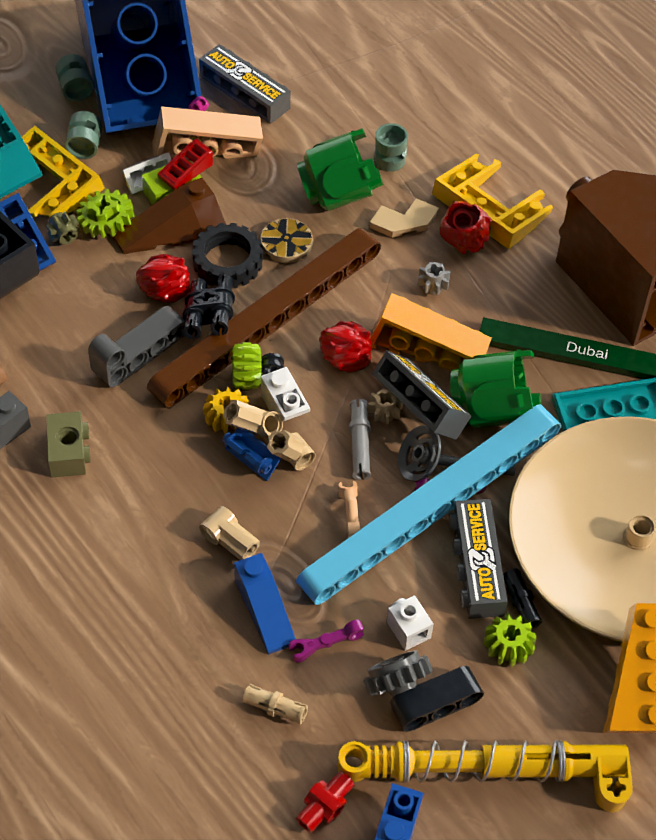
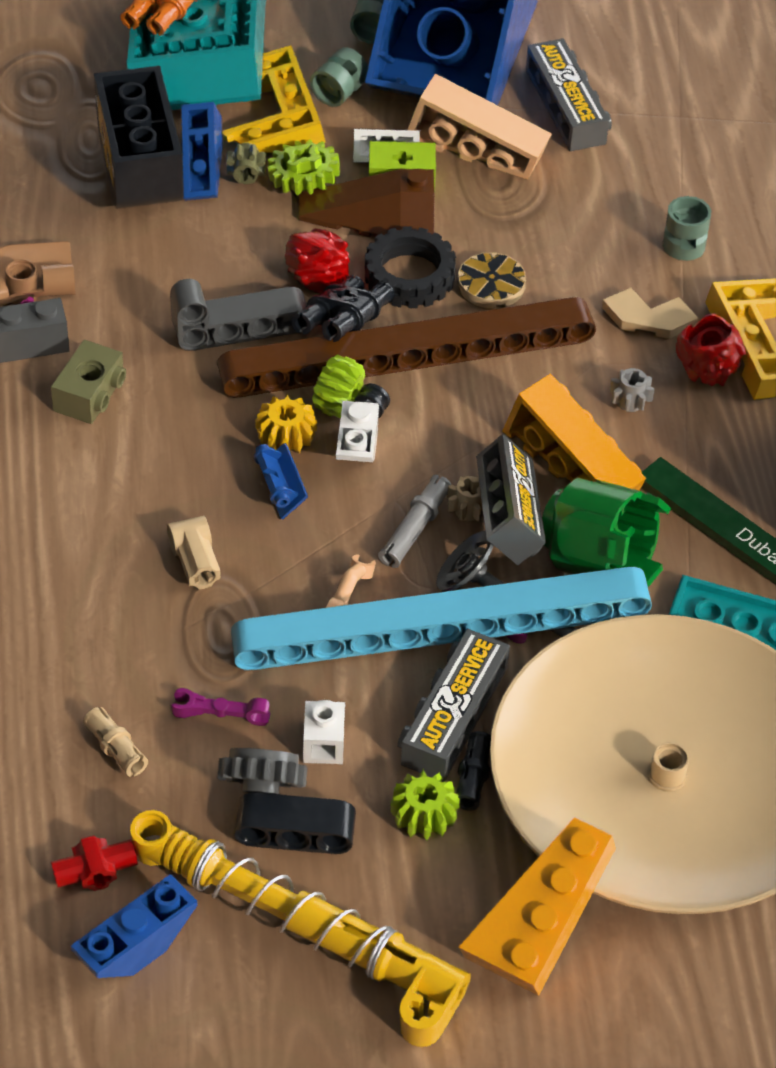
camera: 30 degrees right, 5 degrees down
(197, 153) = (434, 145): red slope -> none
(199, 103) = (487, 91): dark pink rock -> none
(252, 419) = (299, 440): tan piece -> none
(263, 602) = (179, 633): blue slope -> none
(291, 448) = (323, 490): tan piece -> none
(336, 174) = (597, 226): green piece -> none
(346, 346) = (470, 416): red hair -> none

